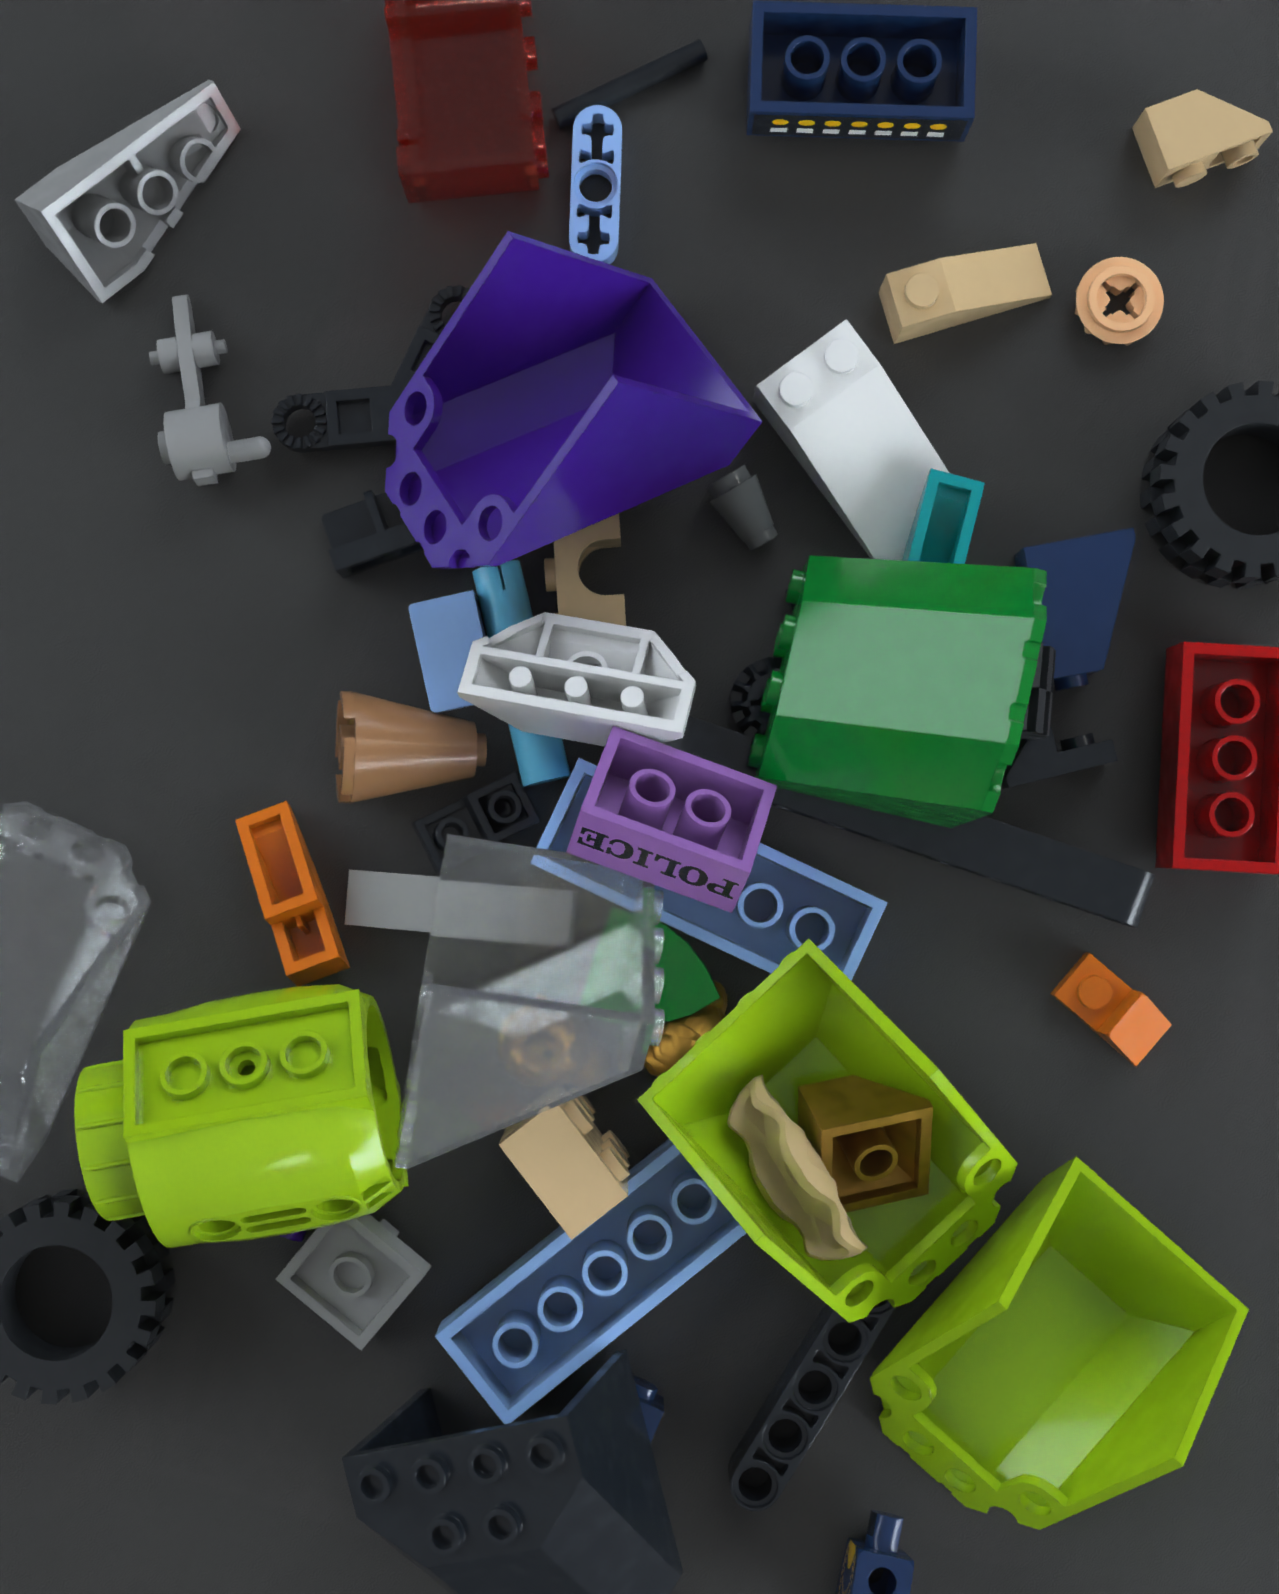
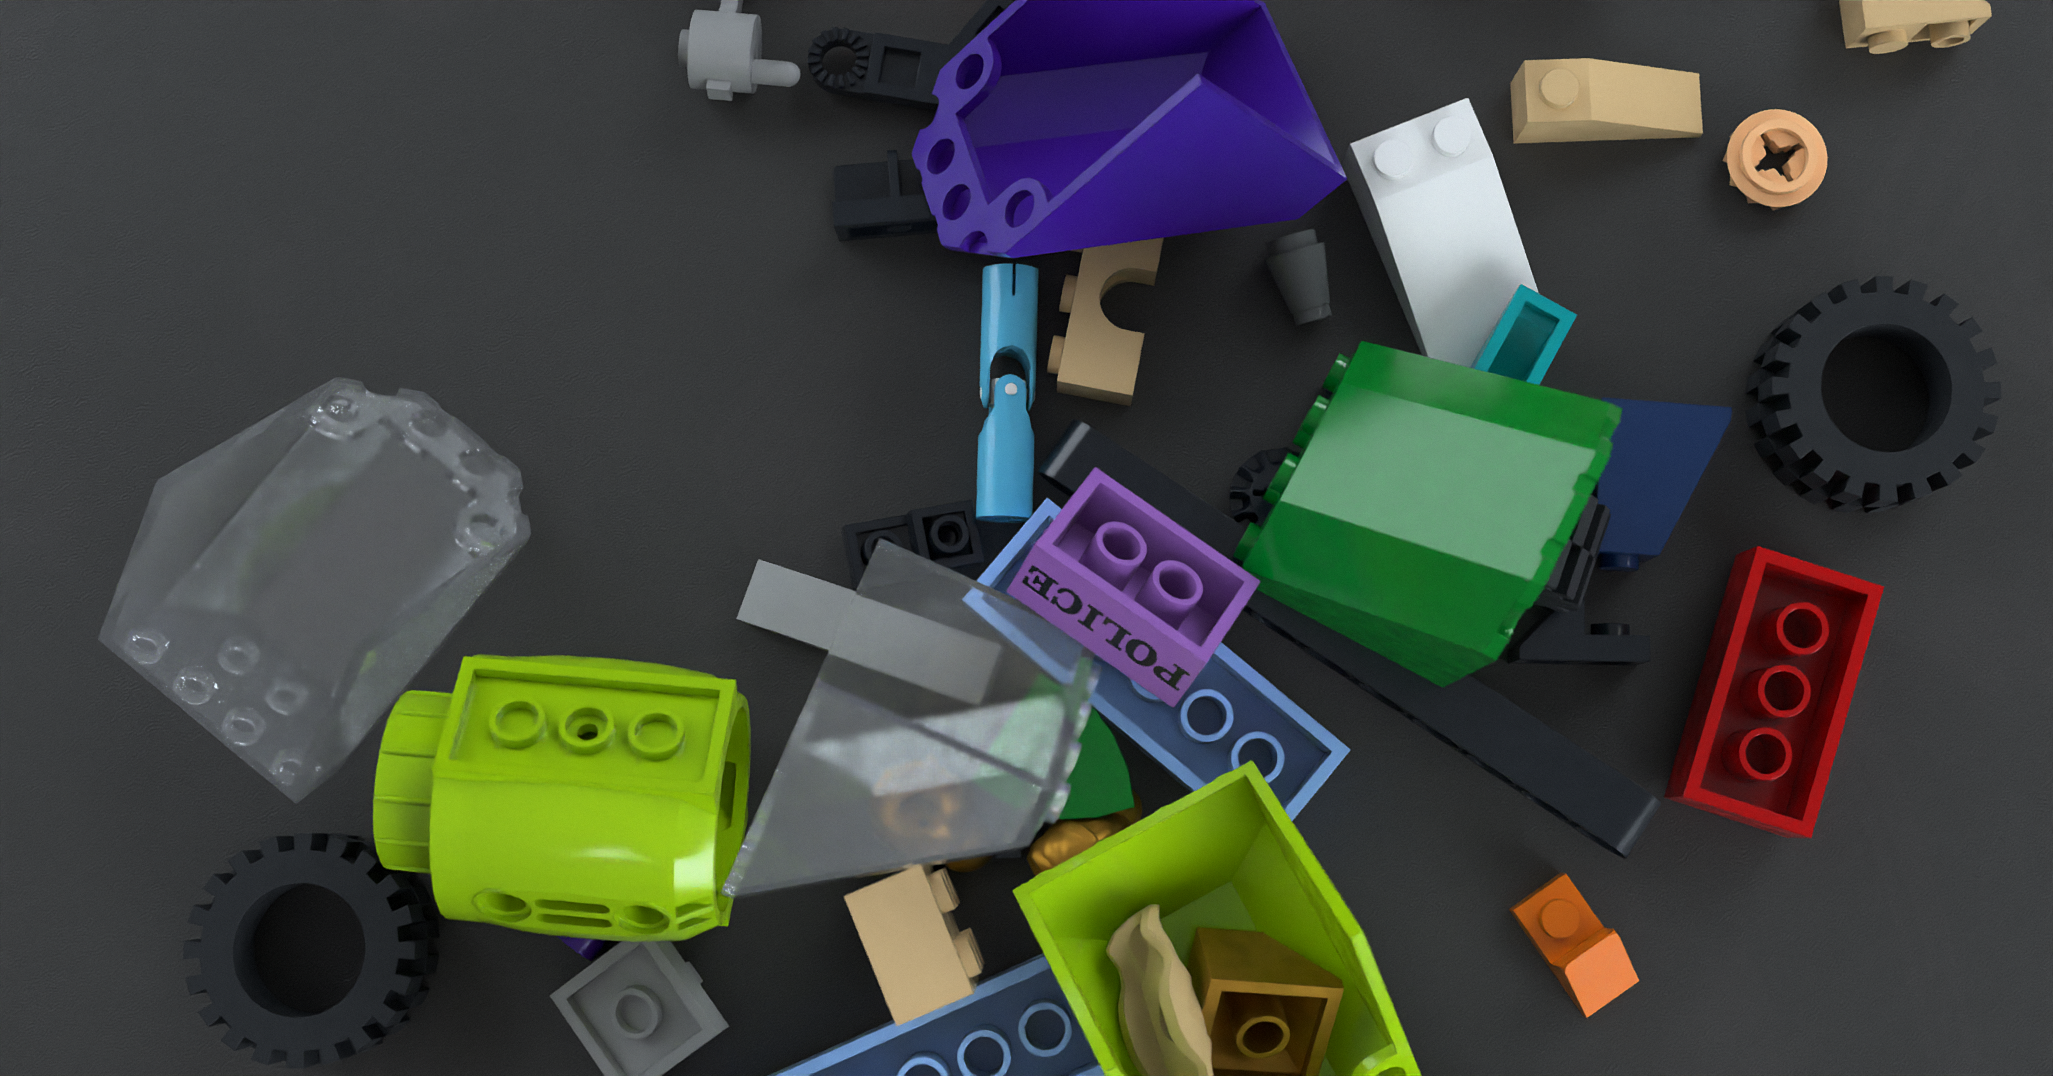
camera: 20 degrees right, 5 degrees down
(291, 894) = (687, 569): orange slope -> none
(400, 748) = (852, 438): medium nougat cone -> none
(443, 641) = (939, 350): light blue panel -> none
(579, 680) = (1069, 410): white wedge -> none

